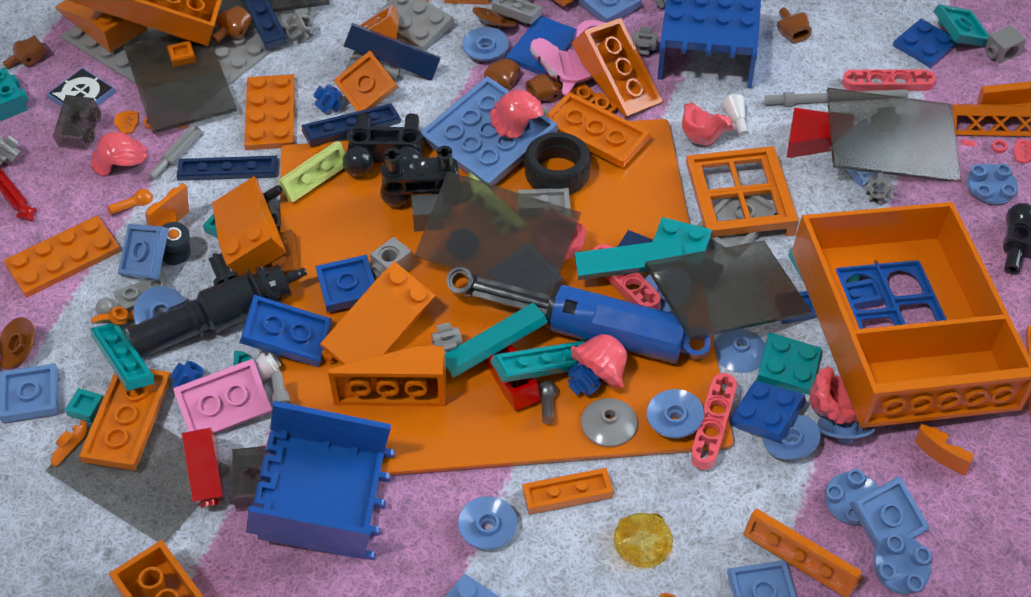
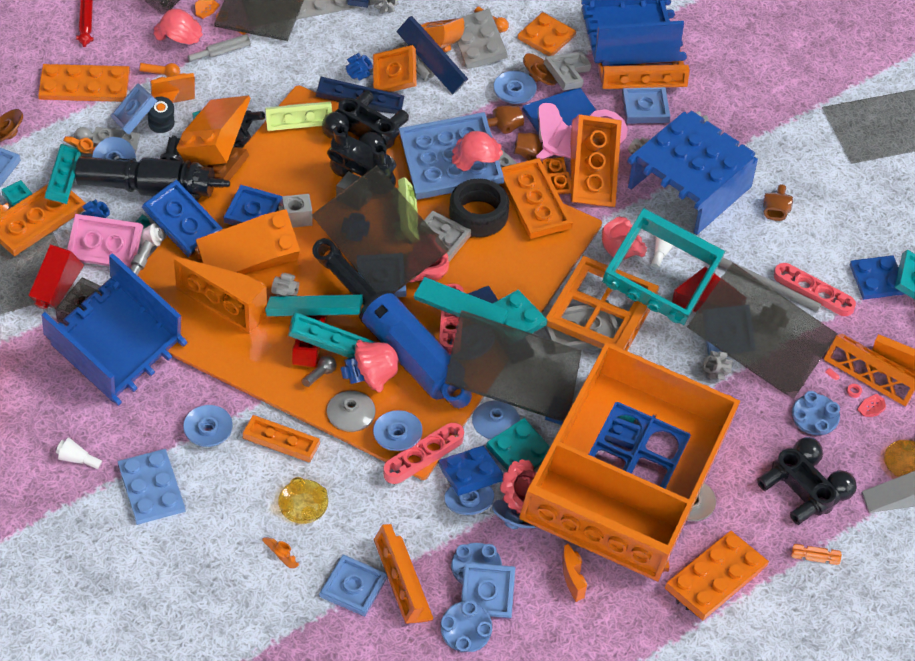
camera: 30 degrees right, 0 degrees up
(227, 168) = (247, 81): dark blue tile -> none
(269, 112) = (311, 54): orange plate -> none
(773, 92) = (677, 237): none -> teal window

